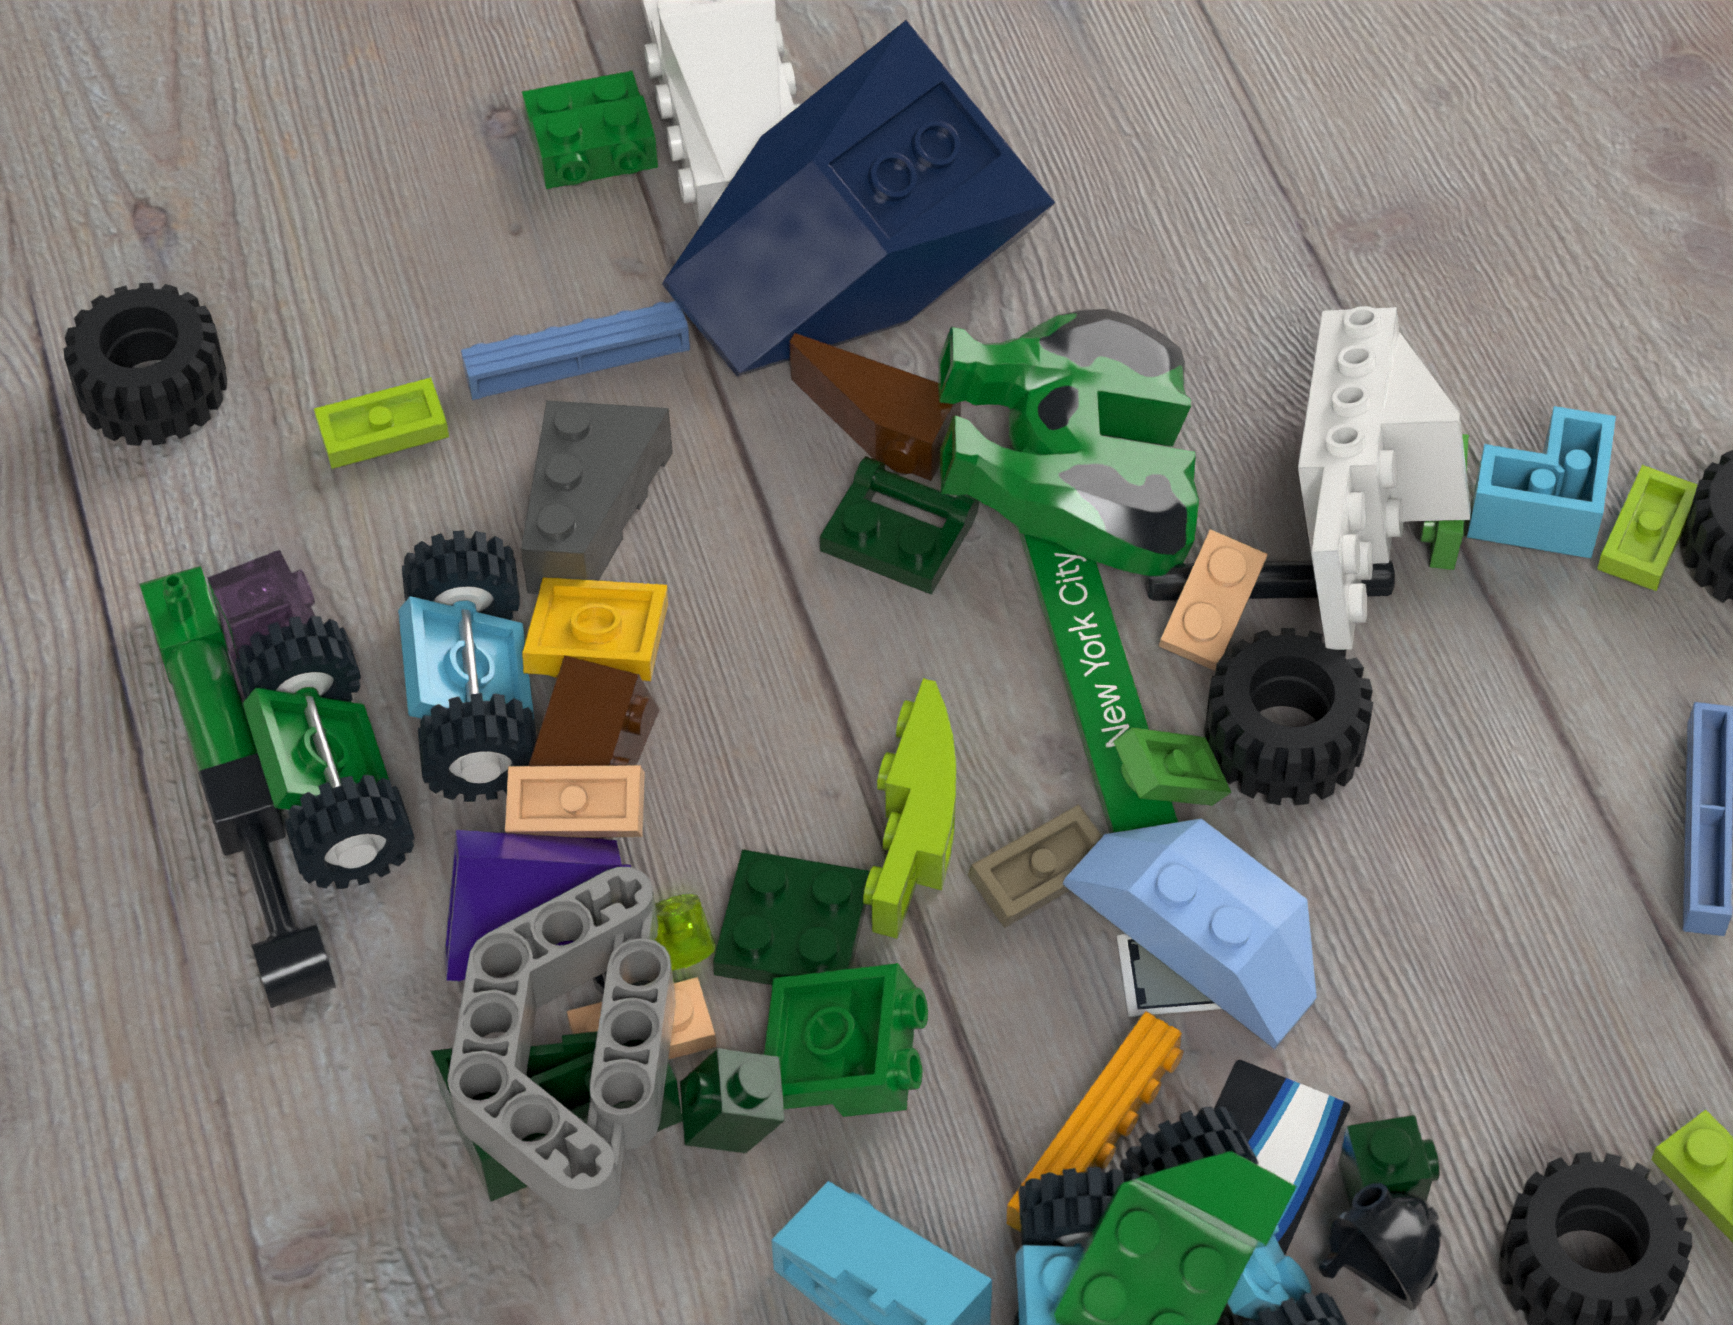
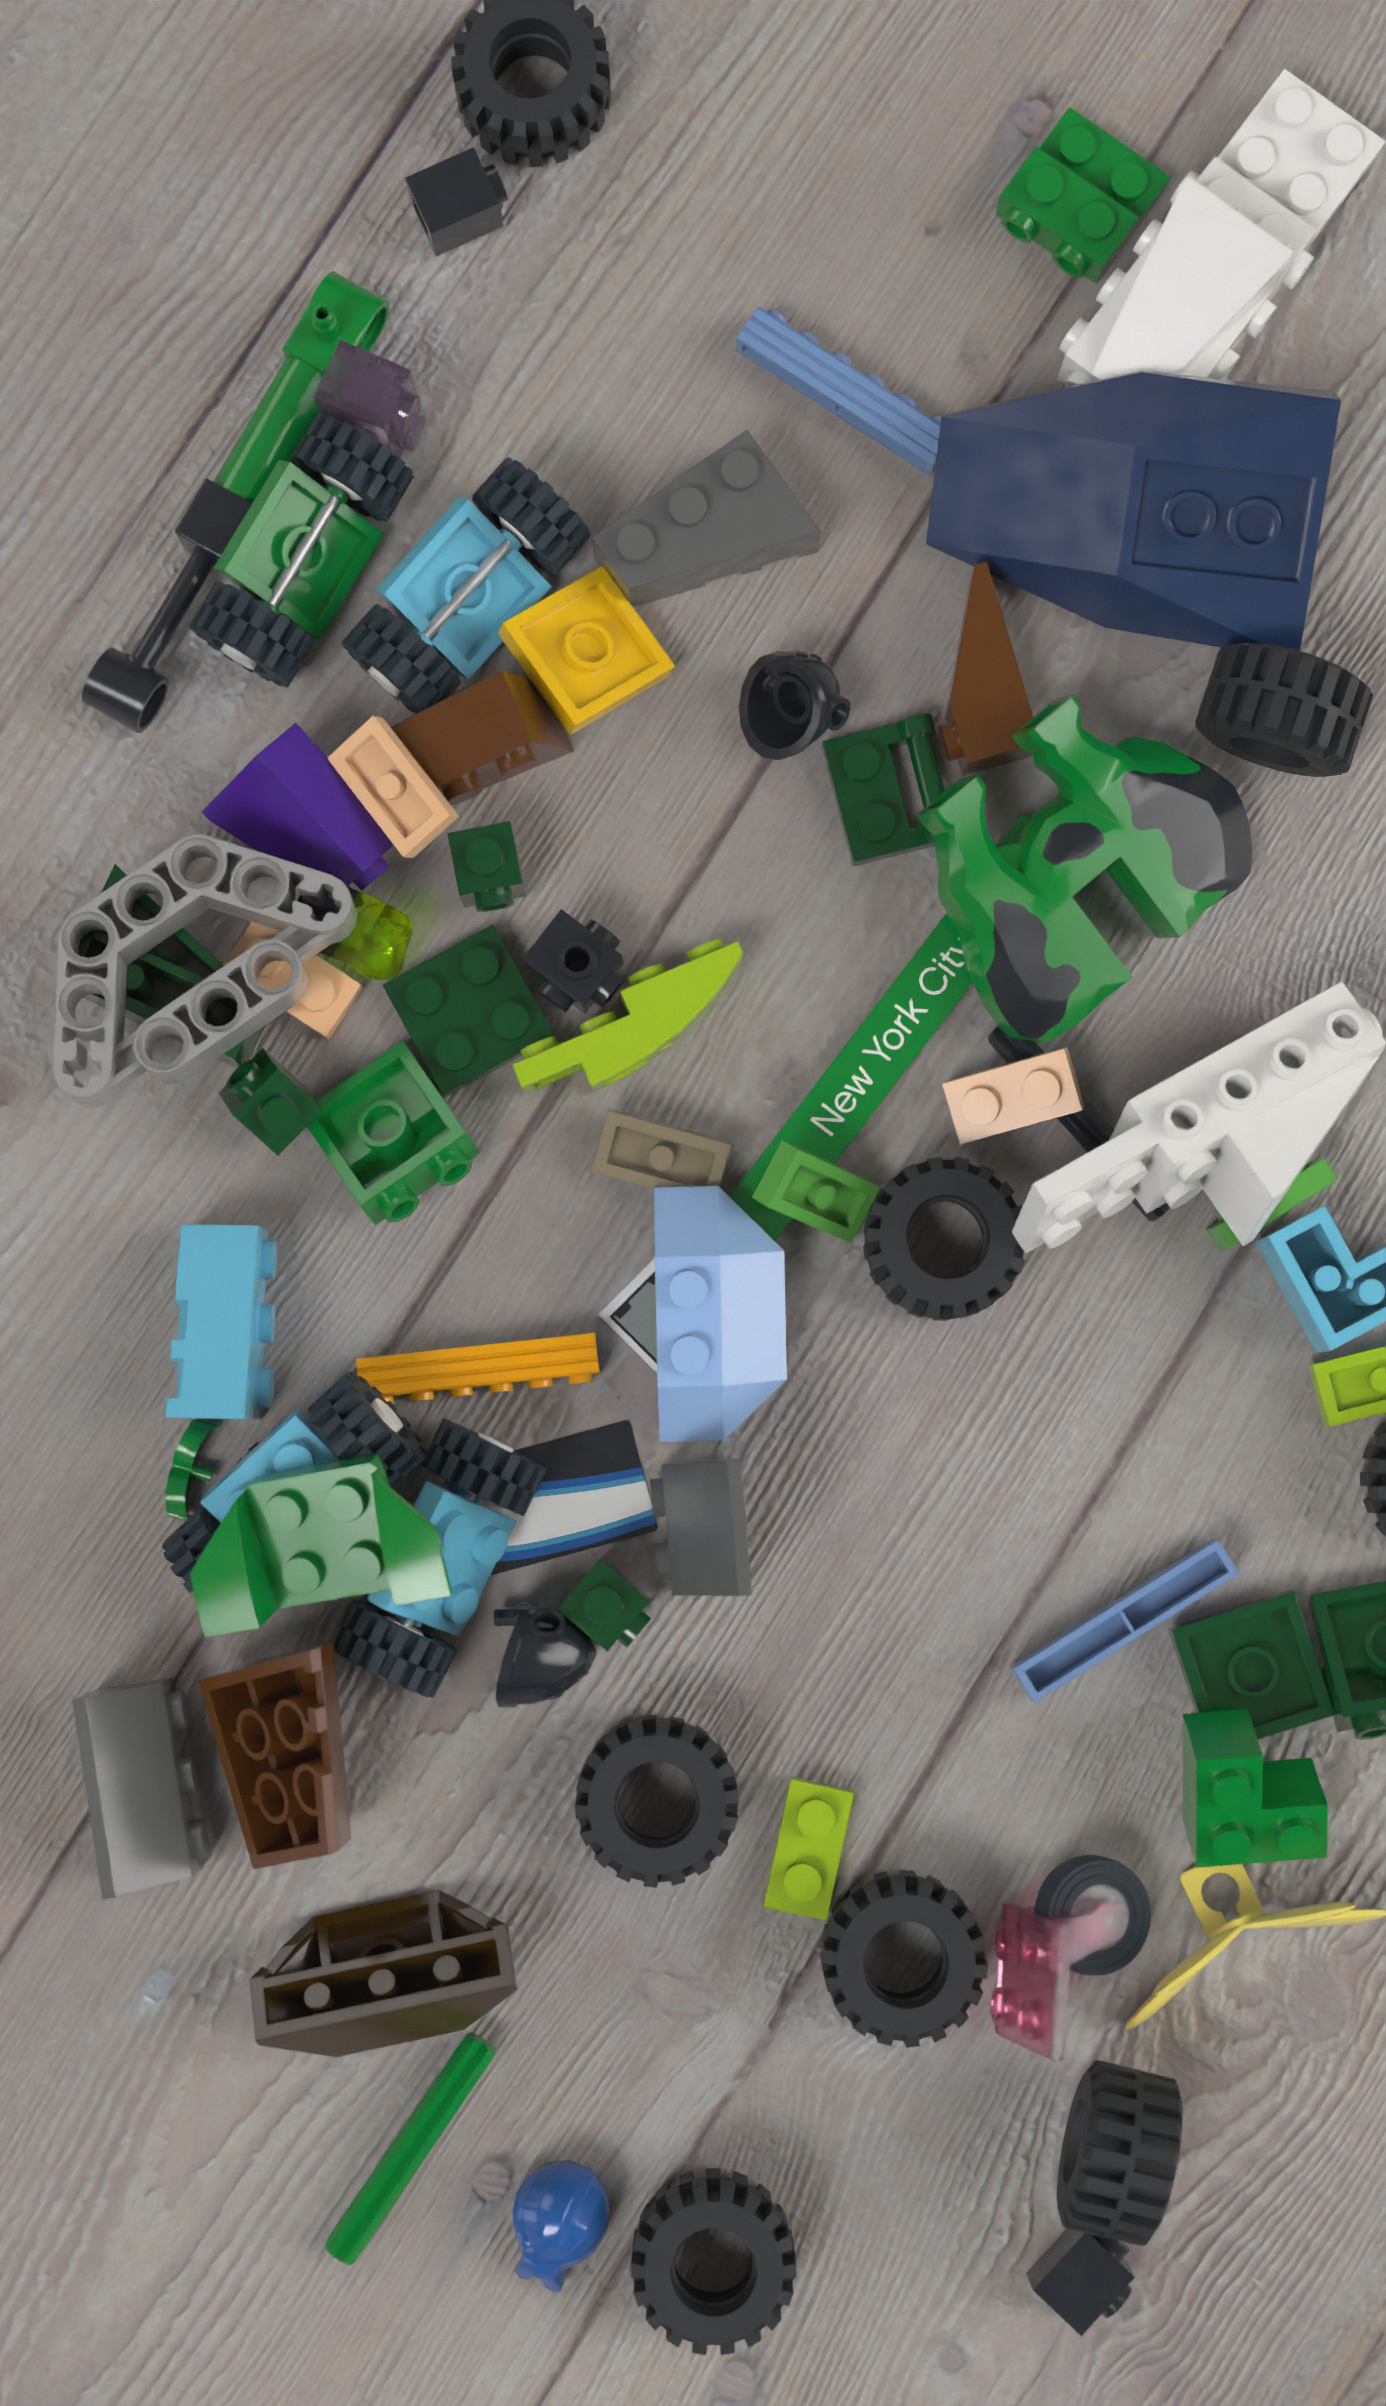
camera: 50 degrees right, 30 degrees up
(178, 472) = (457, 200): none -> black brick
(381, 422) = (642, 307): lime plate -> none
(693, 813) = (487, 866): none -> dark green brick
(771, 527) = (793, 705): none -> black helmet
(831, 806) = (569, 941): none -> black brick
(1082, 232) = (1284, 709): none -> black tyre
(1390, 1017) = (704, 1528): none -> dark grey slope

